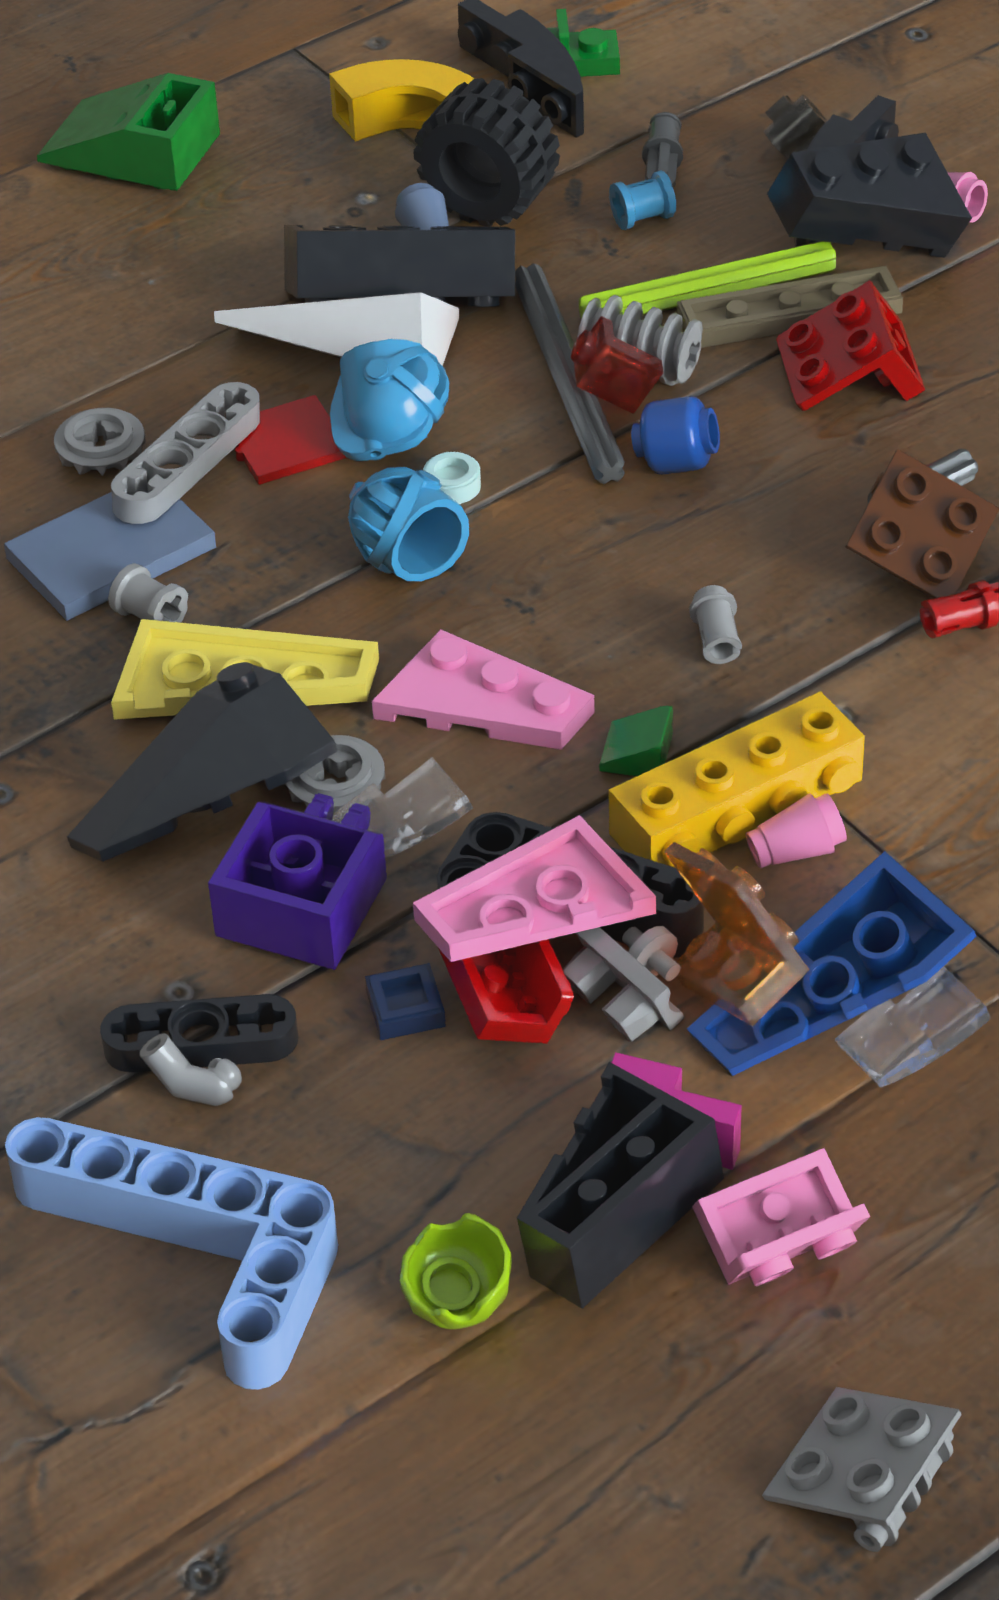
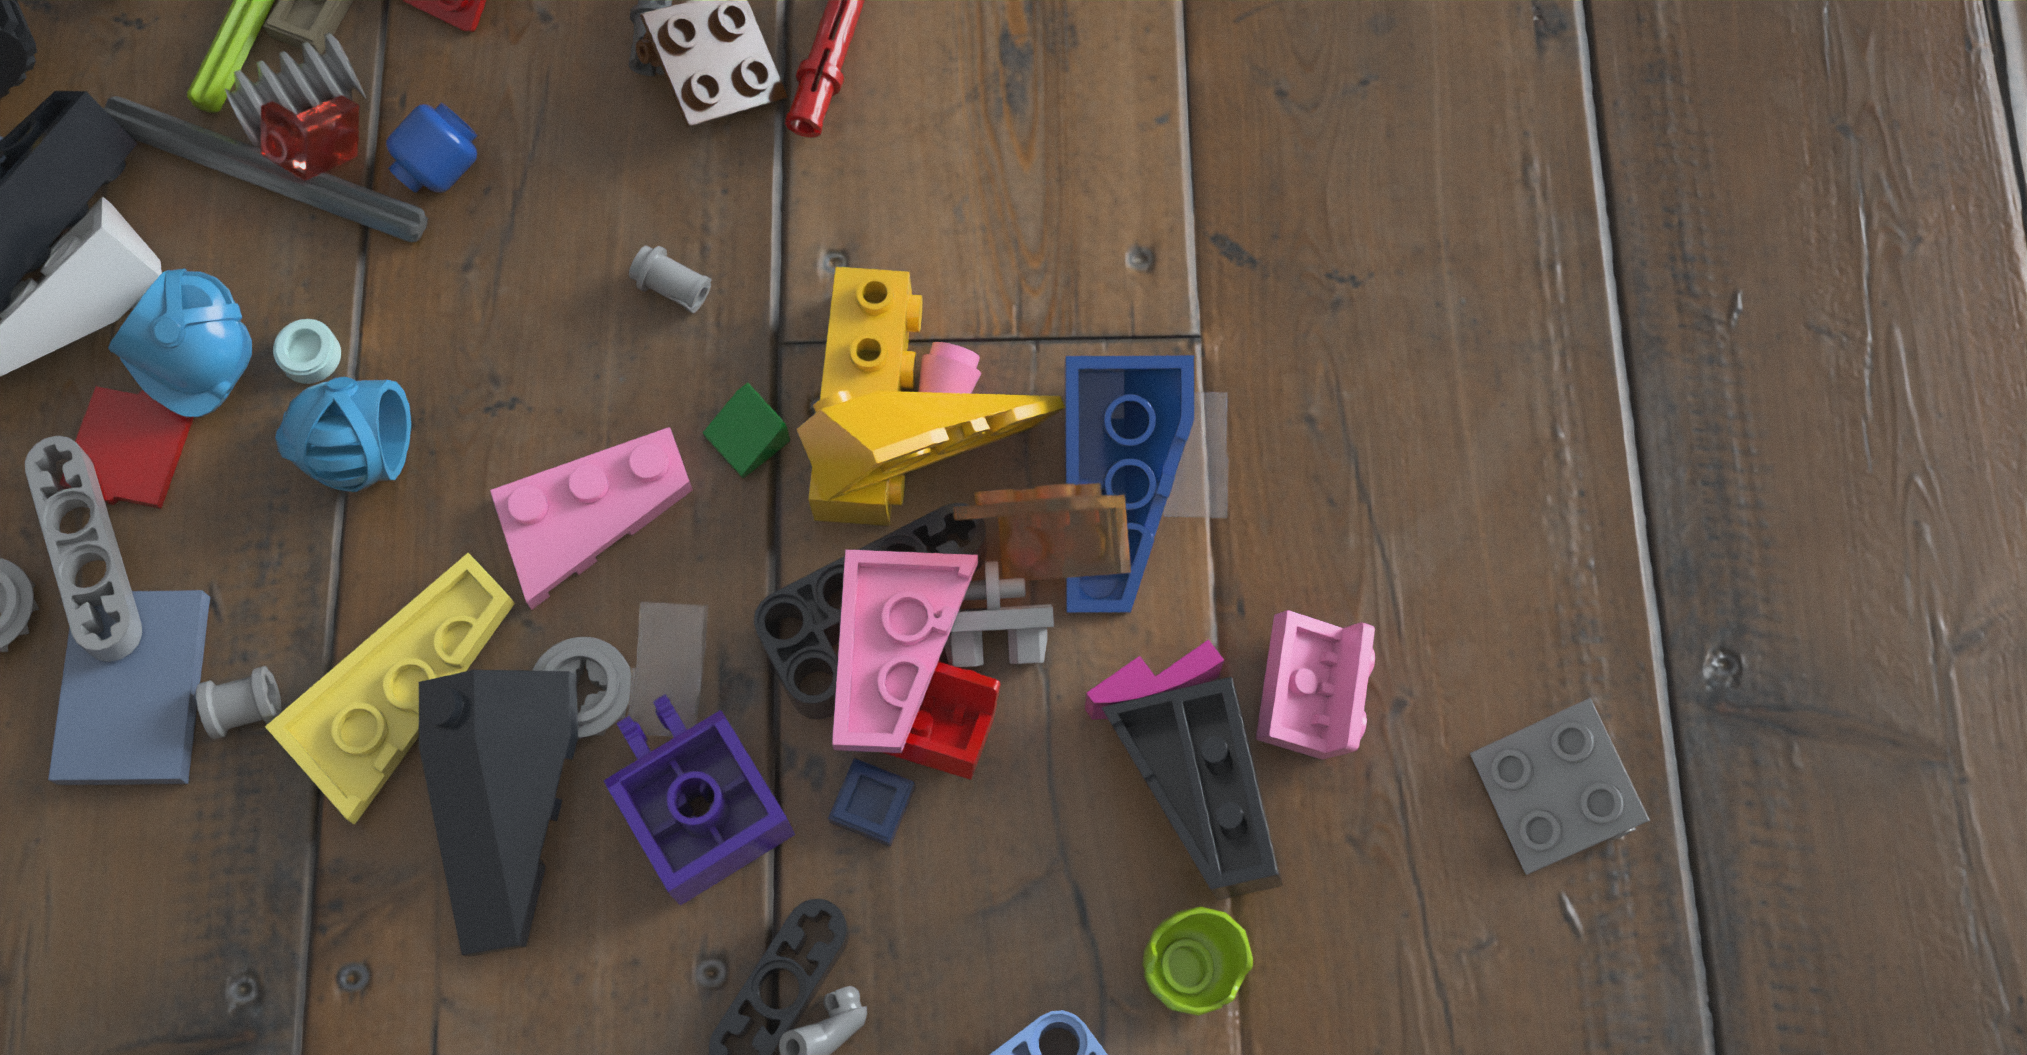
camera: 55 degrees left, 25 degrees up
(712, 794) = (897, 432): none -> yellow wedge

